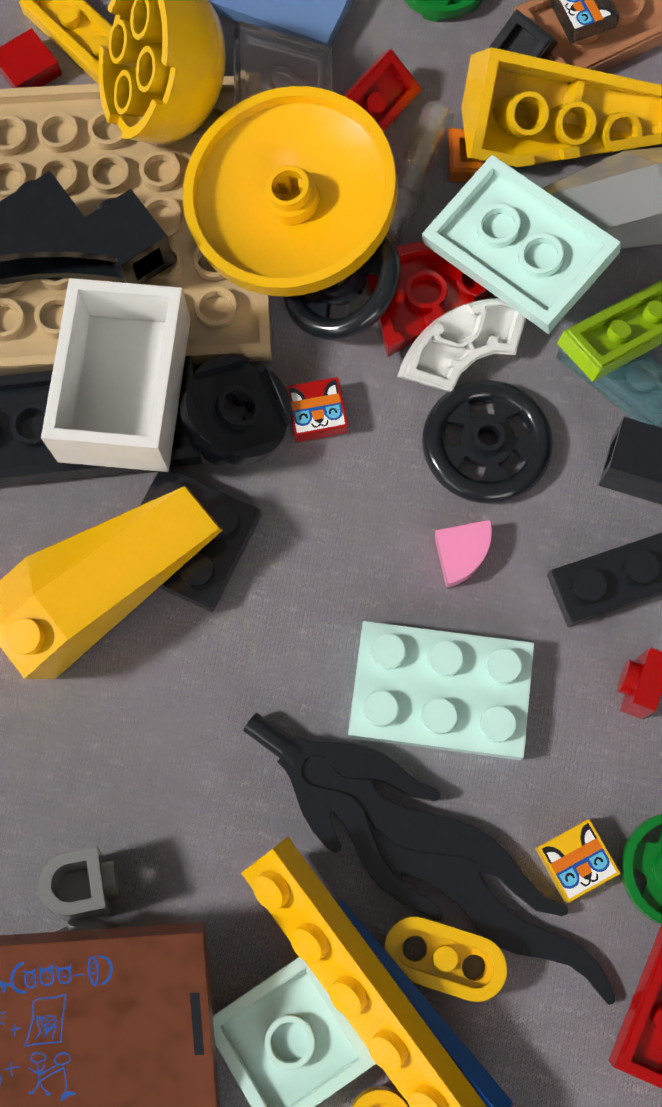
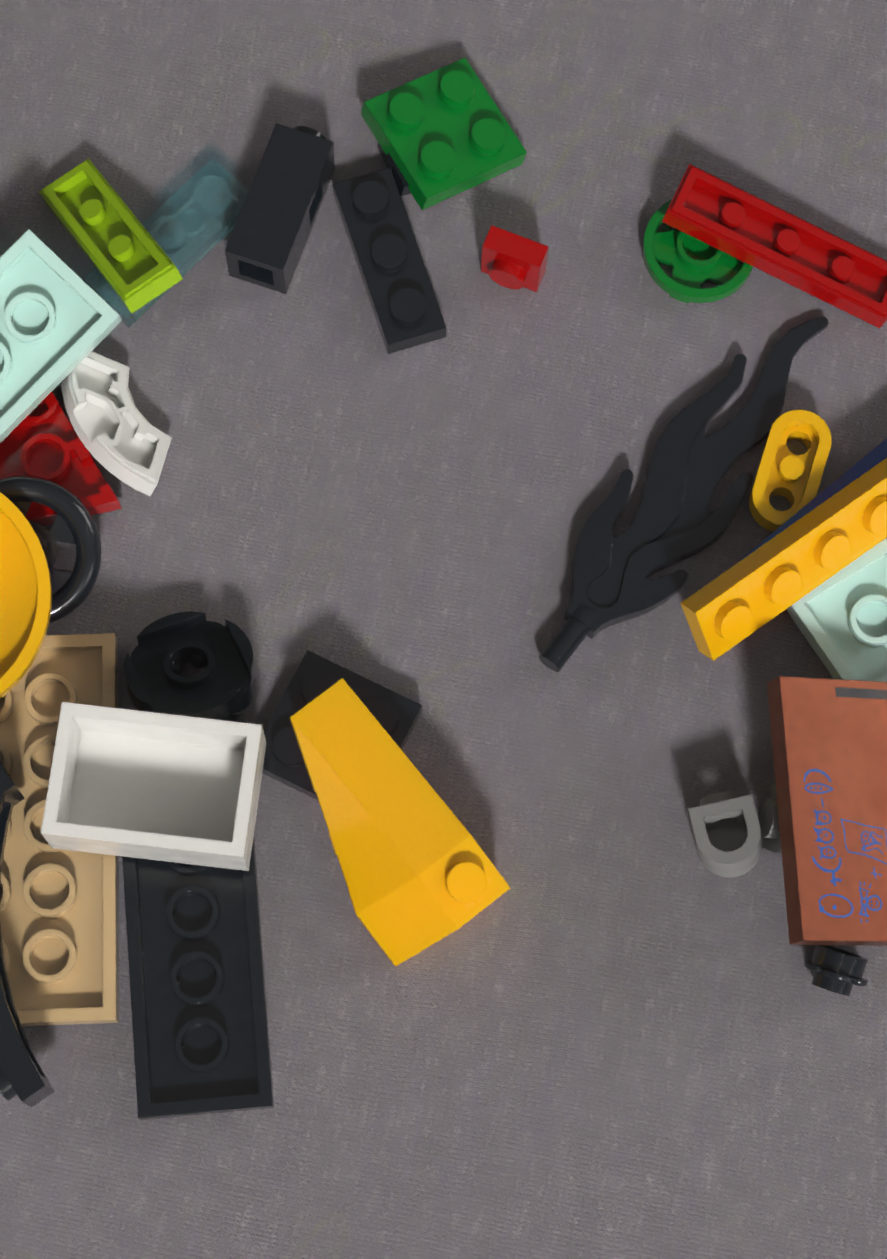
camera: 95 degrees left, 0 degrees up
(317, 409) = (184, 585): tile -> none
(442, 690) = (515, 466): light aqua plate -> none
(462, 550) = (361, 436): bright pink tile -> none
(495, 483) = (252, 448): black plate -> none
(577, 861) = (691, 341): tile -> none

